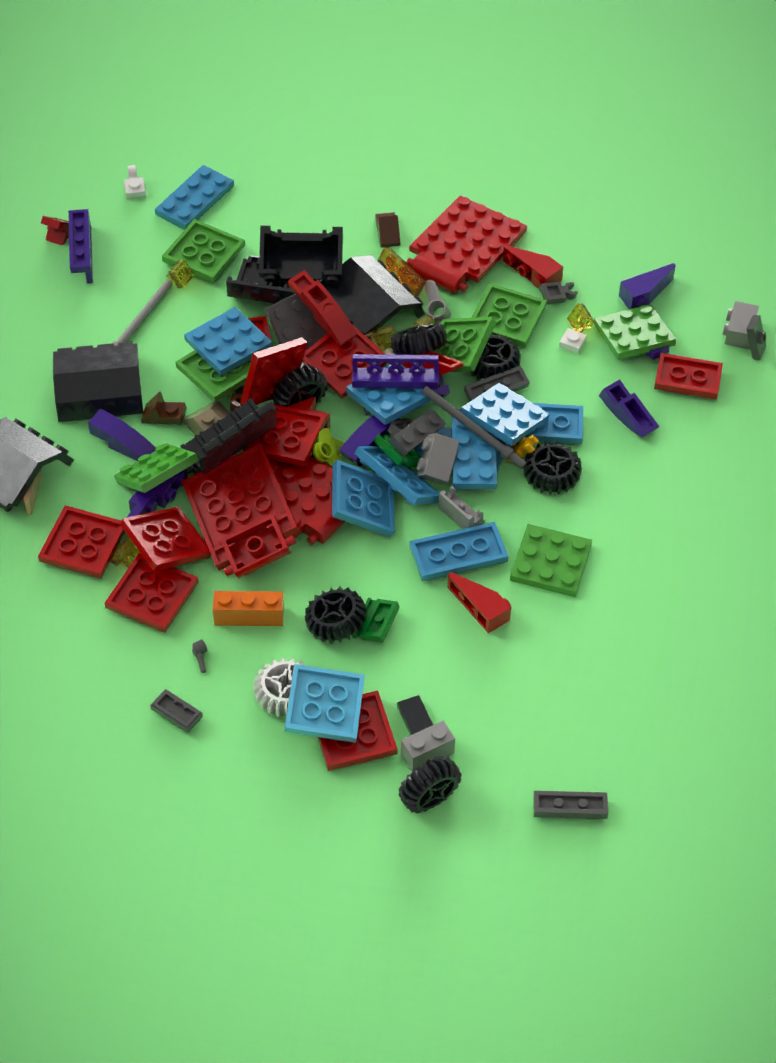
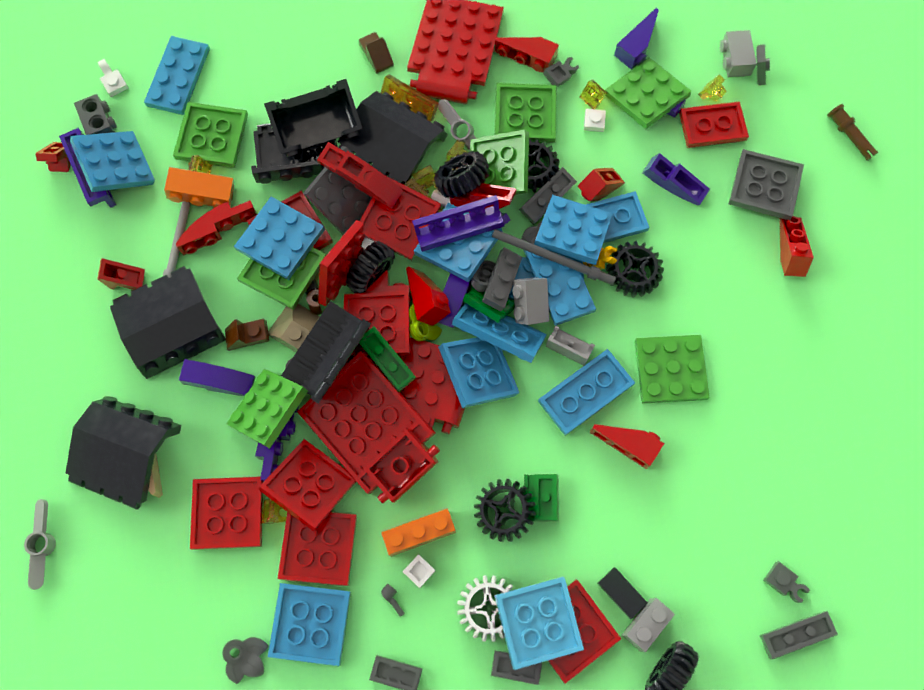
camera: 20 degrees left, 20 degrees up
(47, 658) = (247, 661): none -> dark grey plate
(70, 330) = (119, 274): none -> red slope
(105, 210) = (94, 115): none -> dark grey brick
(106, 243) = (112, 161): none -> dark azure plate
(117, 648) = (309, 624): none -> dark azure plate
(169, 319) = (207, 228): none -> red slope
(174, 287) = (198, 187): none -> orange brick
(234, 640) = (419, 571): none -> white plate
(281, 459) = (387, 359): none -> green tile
(291, 744) = (503, 668): none -> dark grey plate
(340, 429) = (428, 299): none -> red slope
(552, 390) = (600, 183): none -> red slope
(579, 760) = (784, 580): none -> dark grey plate
(701, 346) = (713, 89): none -> clear yellow tile
(716, 438) = (766, 184): none -> dark grey plate
(720, 496) = (794, 247): none -> red slope

